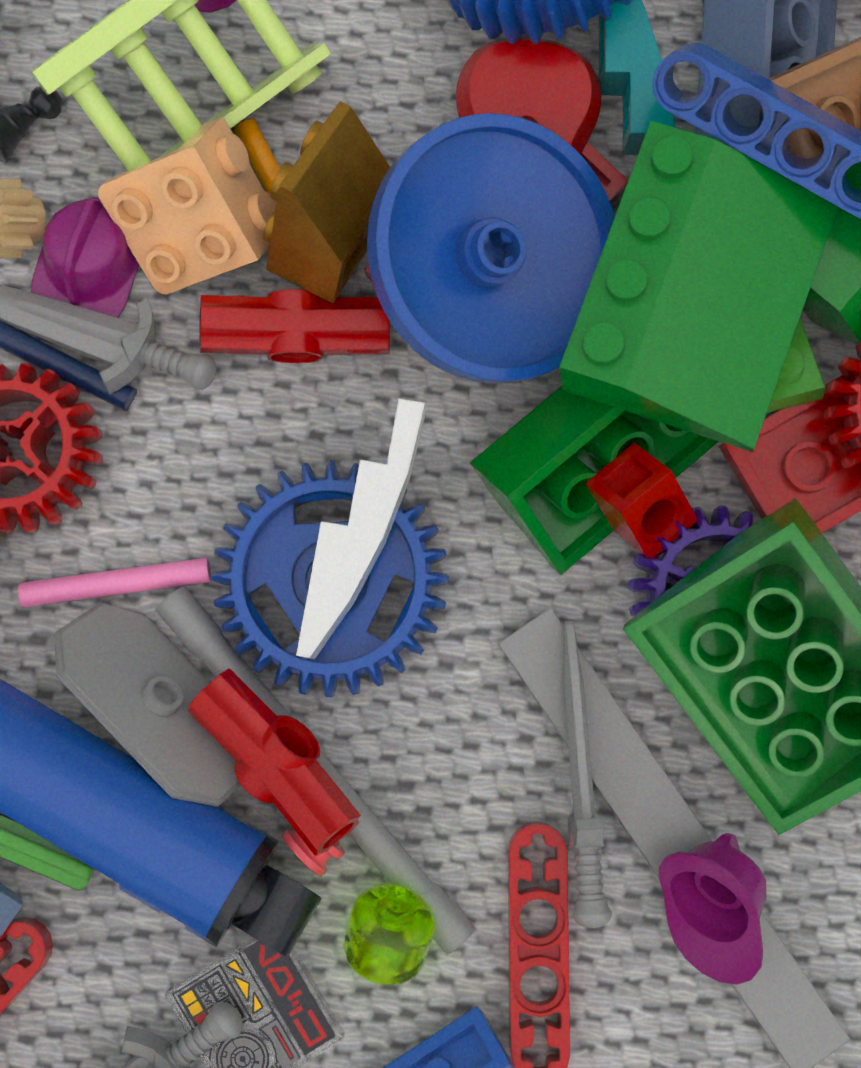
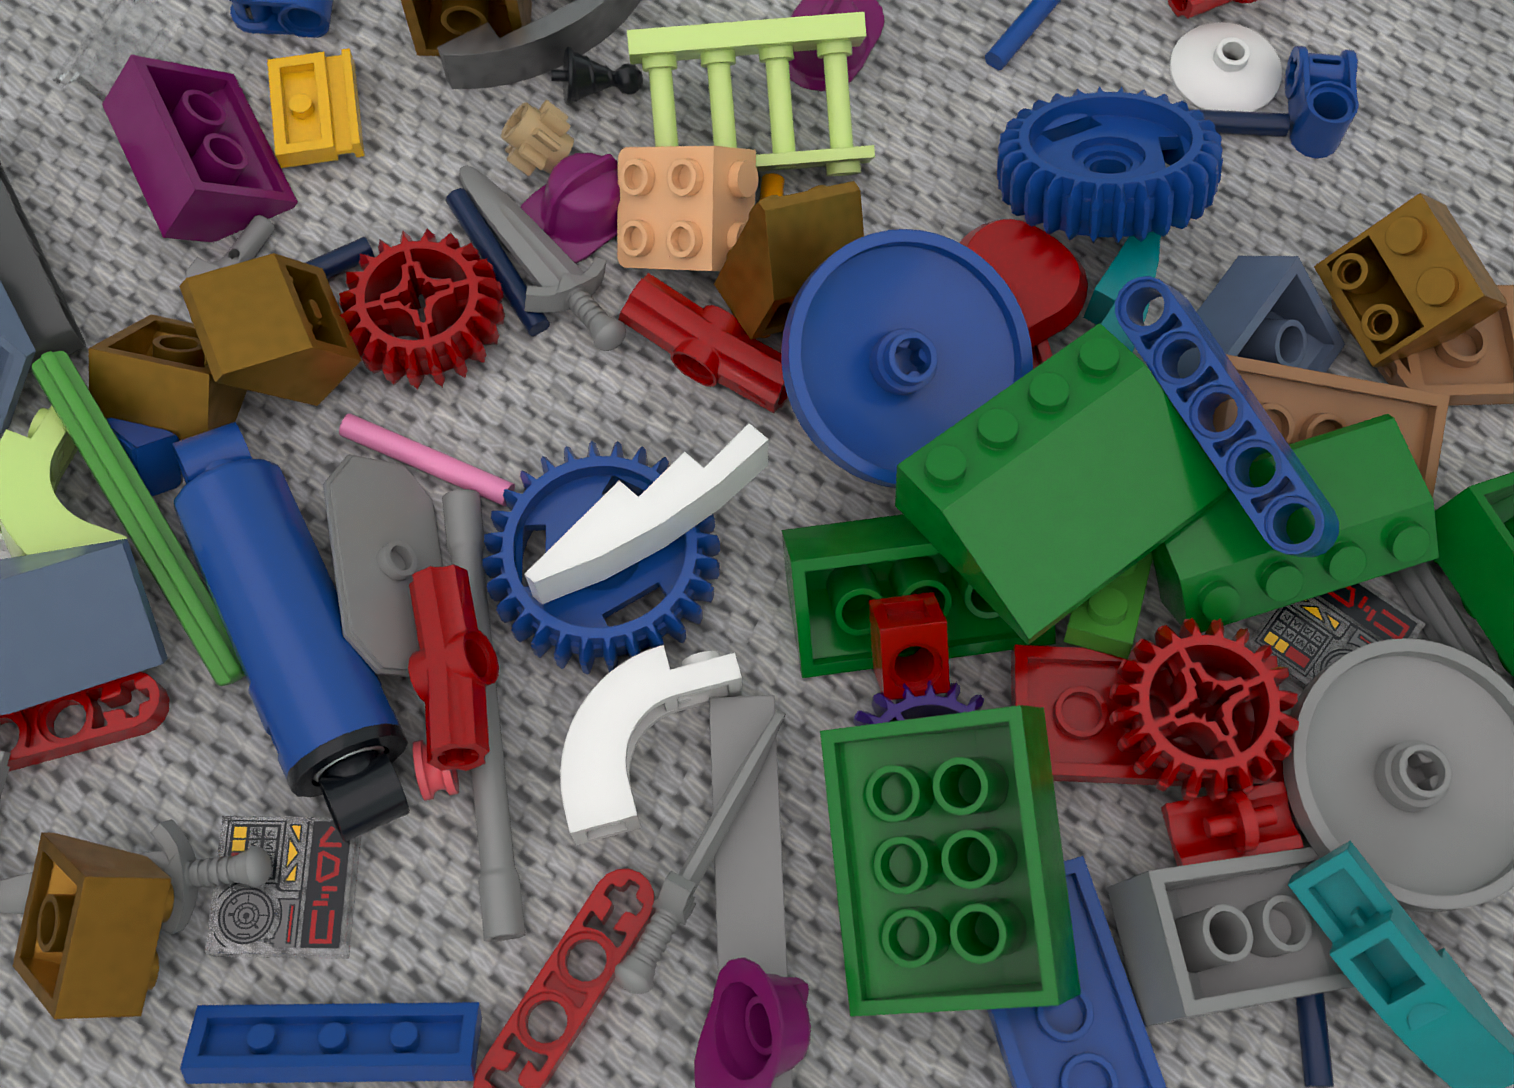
camera: 30 degrees right, 15 degrees down
(389, 934) = (444, 882): clear neon green head -> none
(438, 746) = (613, 721): none -> white arch

